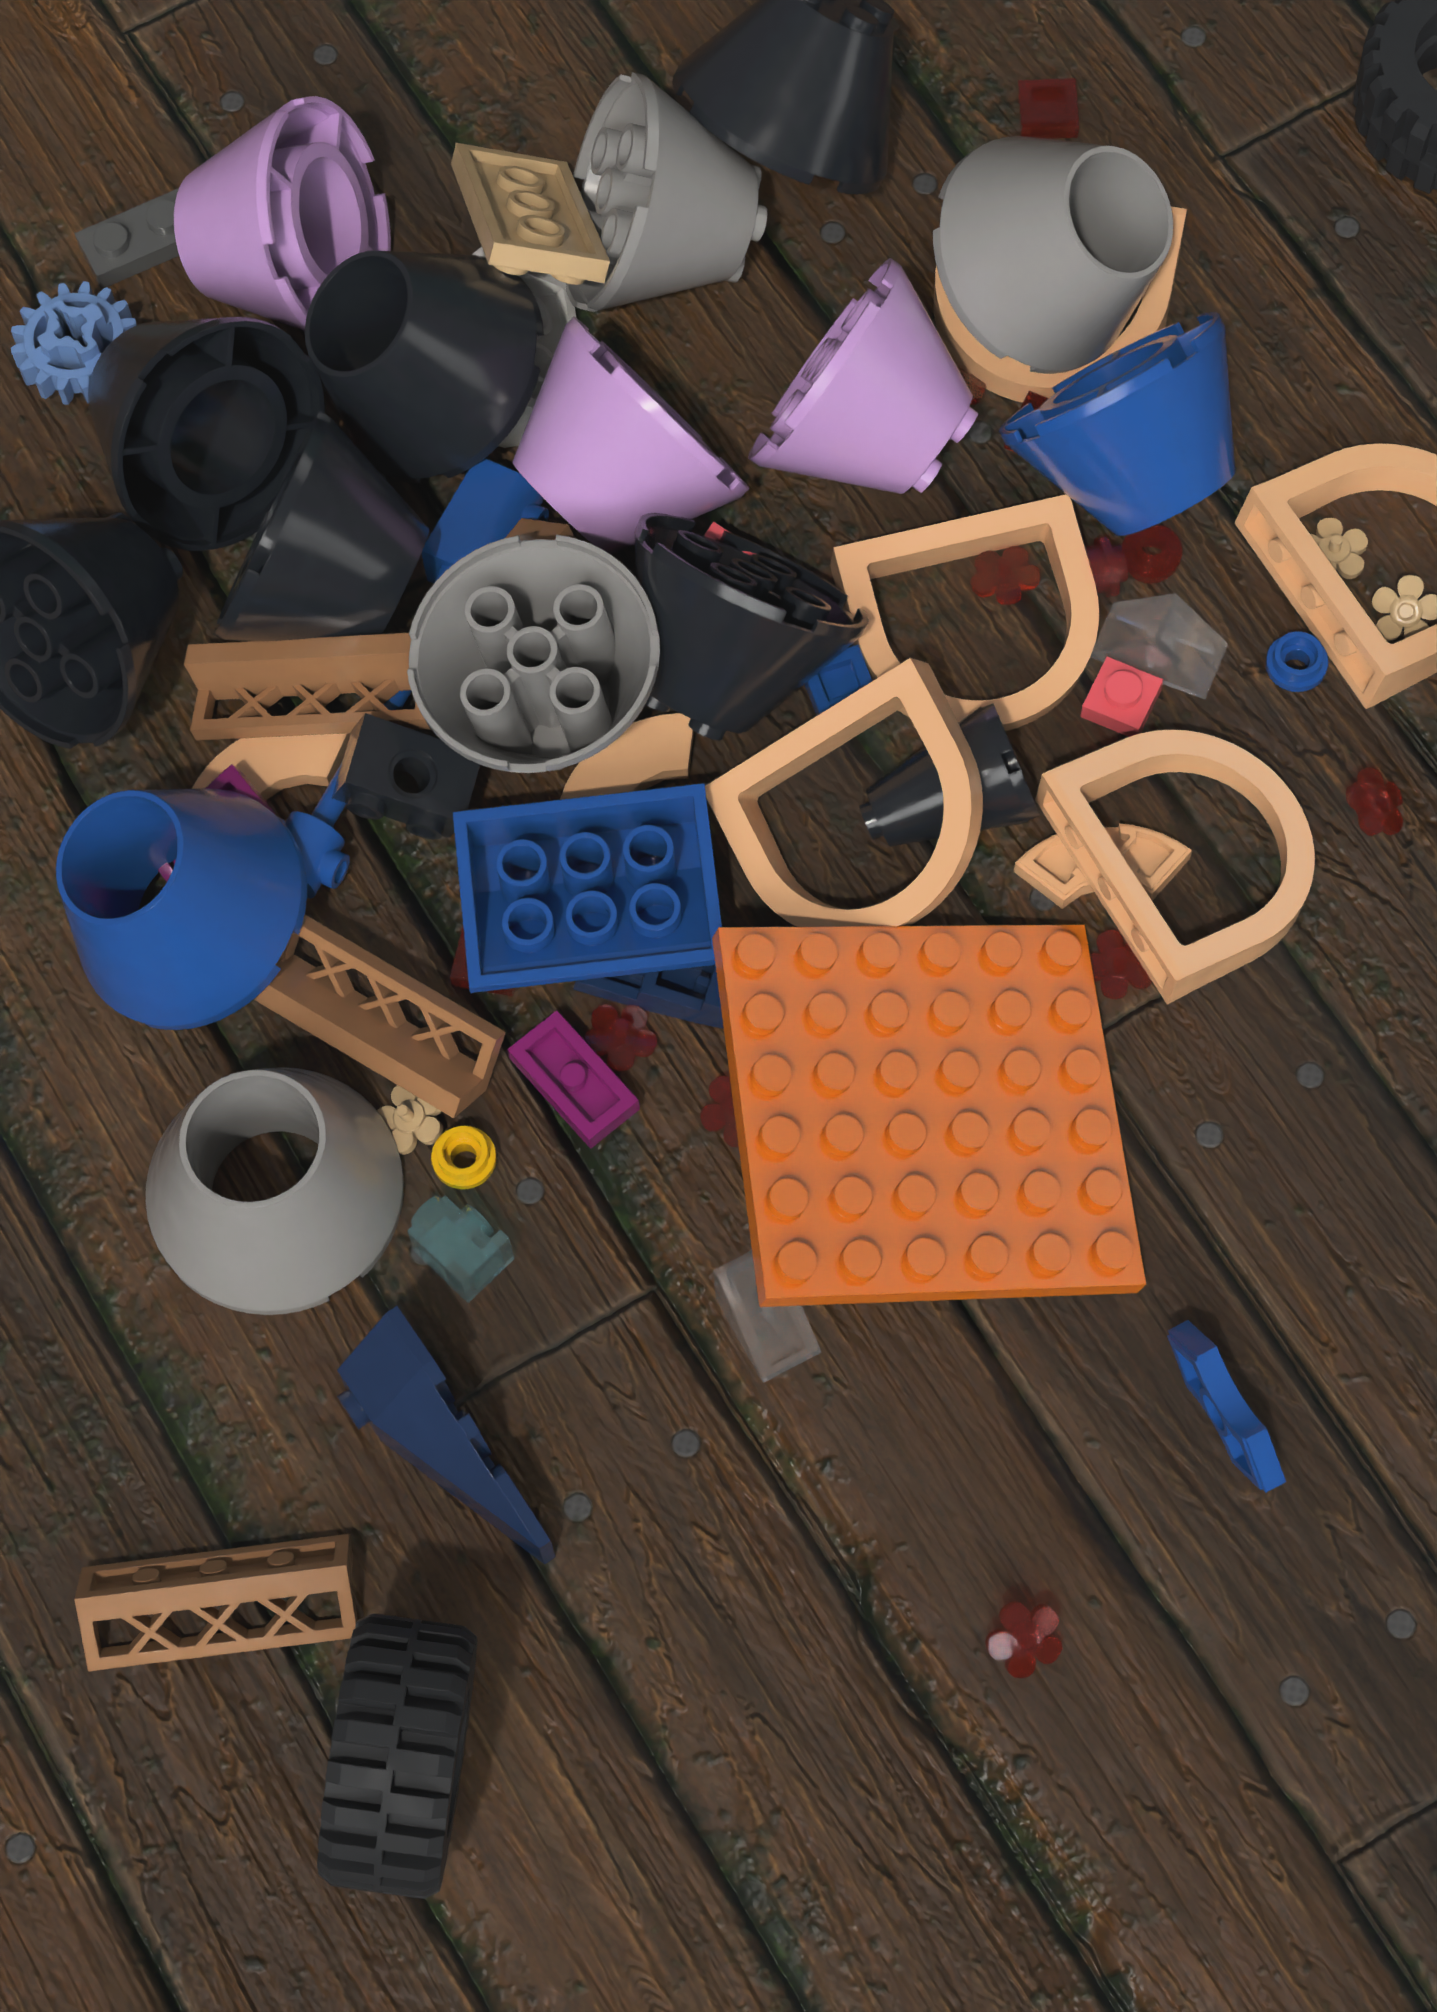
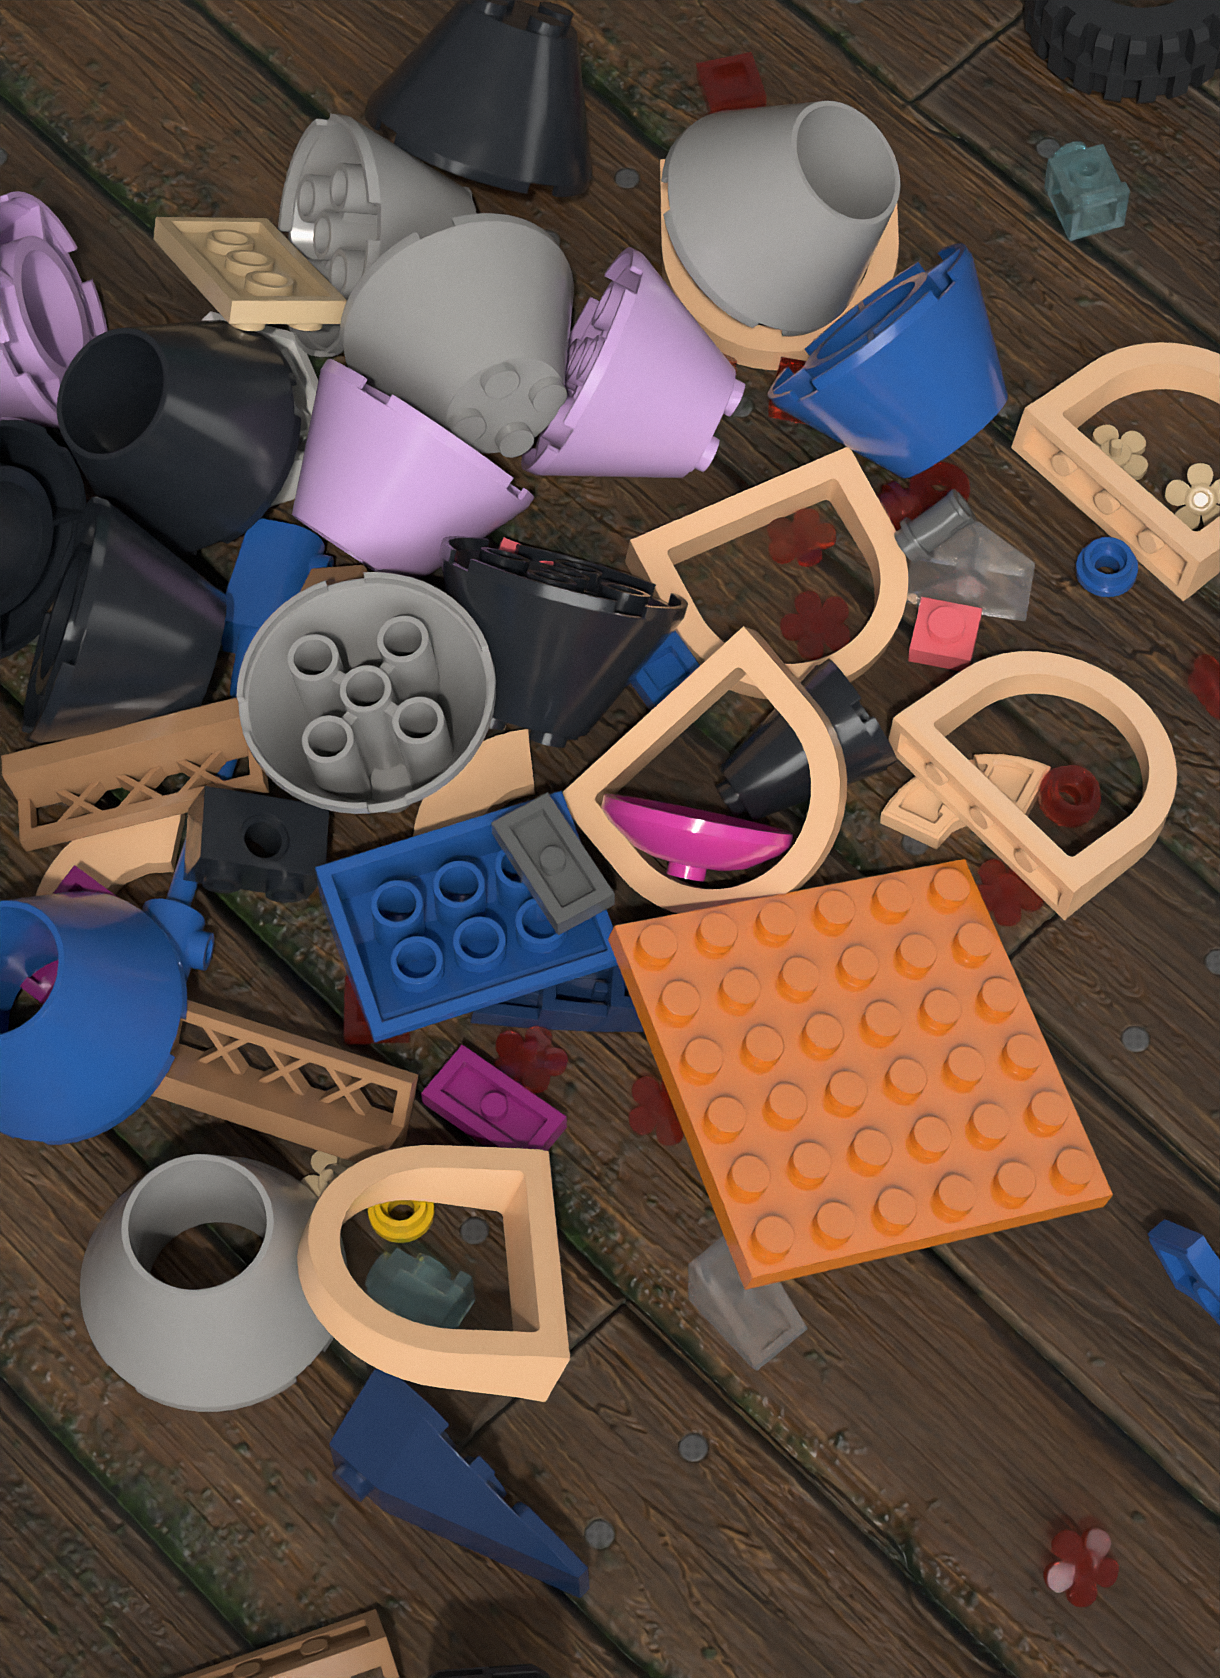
camera: 15 degrees left, 5 degrees down
(480, 1321) = (482, 1361): none -> light nougat window
(676, 854) = (553, 863): none -> dark grey plate
(718, 311) = (468, 329): none -> light grey cone
(822, 850) = (694, 837): none -> dark pink dish
(999, 664) = (816, 625): none -> clear red plant
(1132, 590) = (934, 527): none -> dark grey pin
(1213, 871) = (1080, 785): none -> clear red plate
(1370, 277) = (1086, 190): none -> clear light blue brick

